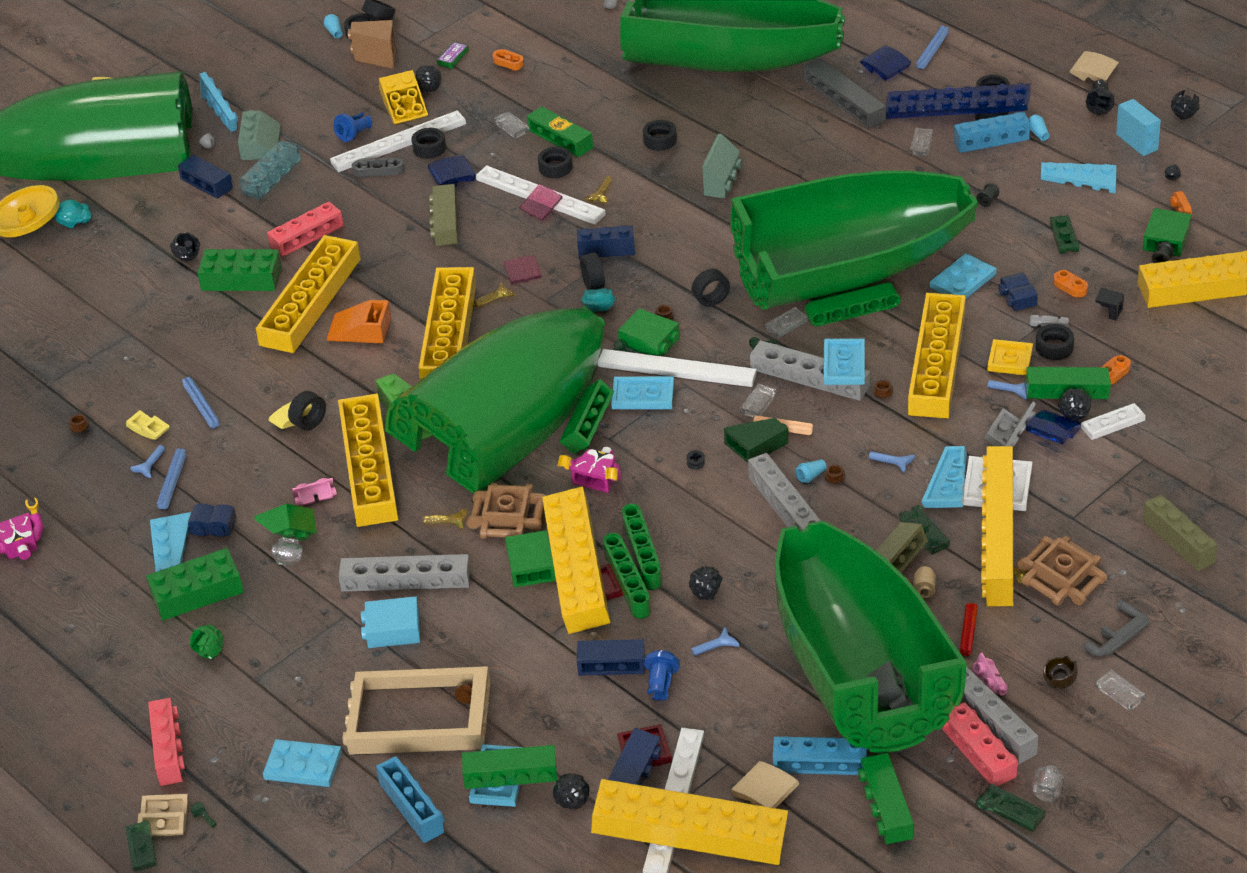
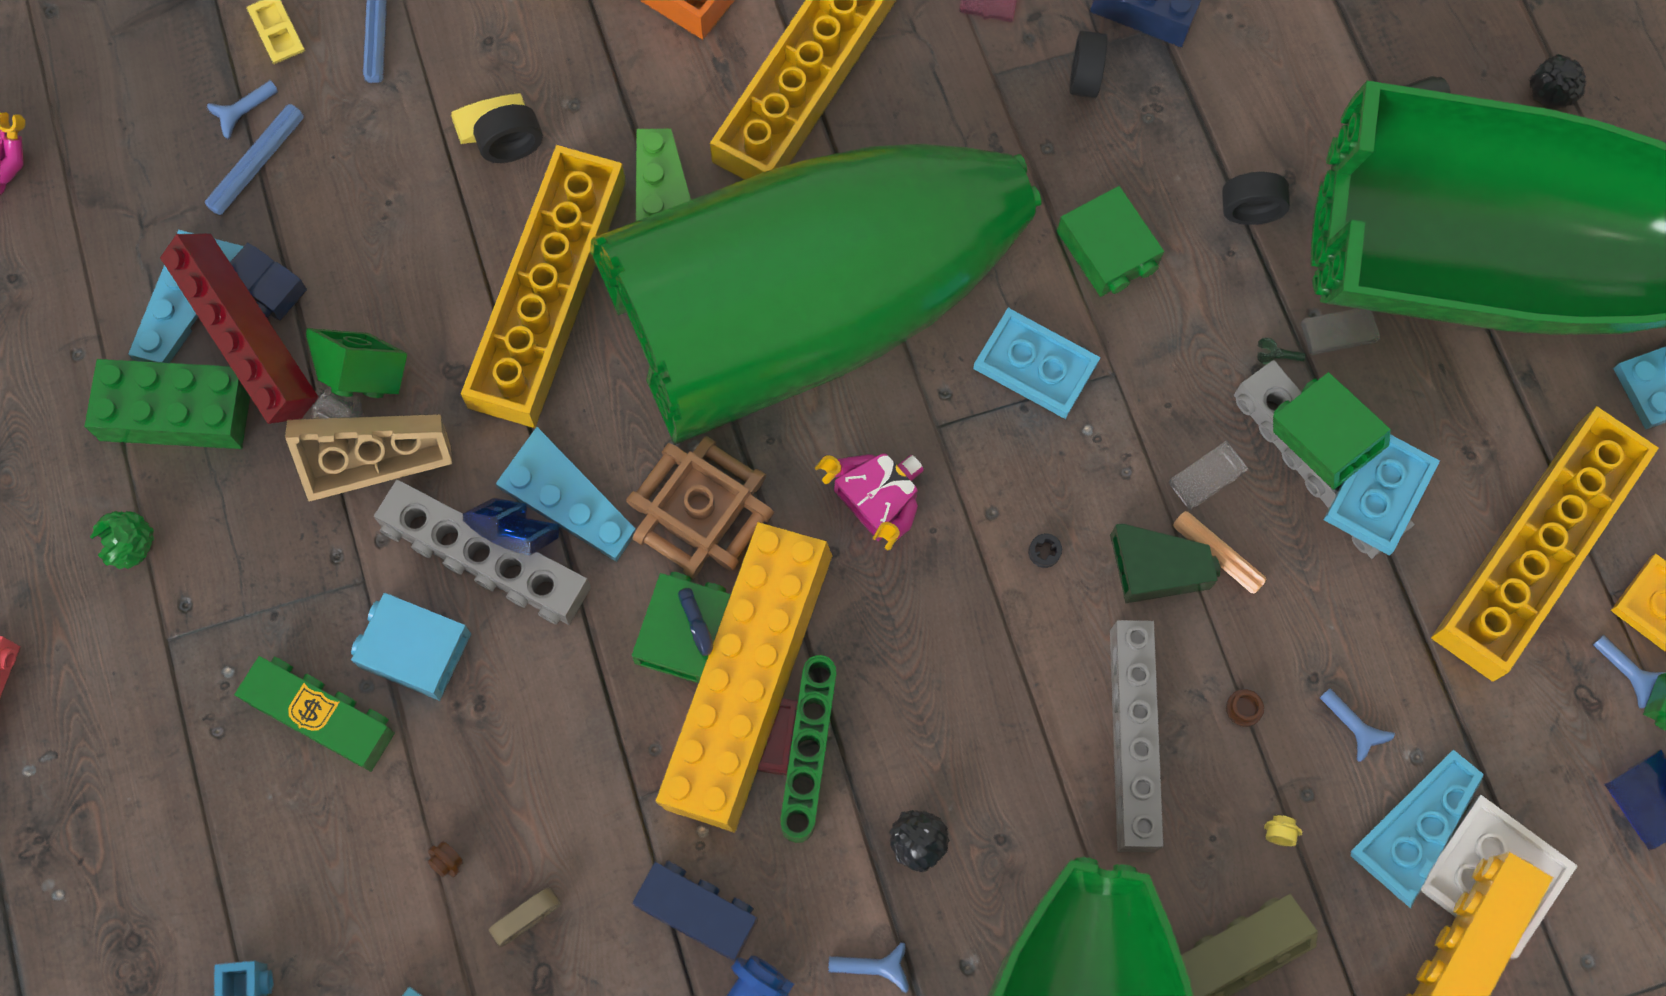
camera: 20 degrees right, 30 degrees up
(216, 532) = (239, 327): none -> dark red brick
(302, 763) = (142, 857): medium azure plate -> none
(305, 493) = (454, 306): bright pink hinge -> none
(307, 559) = (364, 451): none -> tan wedge
(339, 667) = (315, 713): none -> green brick
(406, 548) = (507, 526): none -> clear blue slope
(419, 740) = (437, 914): tan window -> none
(424, 537) = (562, 494): none -> medium azure wing
(454, 518) = (619, 472): clear yellow piece -> none
(500, 292) = (932, 24): clear yellow piece -> none
(524, 696) = (524, 917): none -> dark tan beam
(540, 545) = (697, 624): none -> dark blue piece
(586, 417) = (920, 375): green brick -> none
(598, 300) = (1070, 123): teal hair -> none
(621, 345) = (1055, 241): clear green hand -> none
(641, 546) = (863, 680): green beam -> none
(665, 311) = (1157, 207): reddish brown plate -> none
(677, 367) = (1120, 335): white tile -> none
(804, 346) = (1330, 430): none -> green brick
(810, 470) = (1210, 679): medium azure cone -> none
(852, 304) = (1467, 348): green beam -> none
(883, 389) = (1418, 562): reddish brown plate -> none
(884, 510) = (1282, 831): none -> light yellow plate
(936, 539) = (1327, 907): clear green plate -> none
(1007, 426) = (1575, 769): light grey bracket -> none

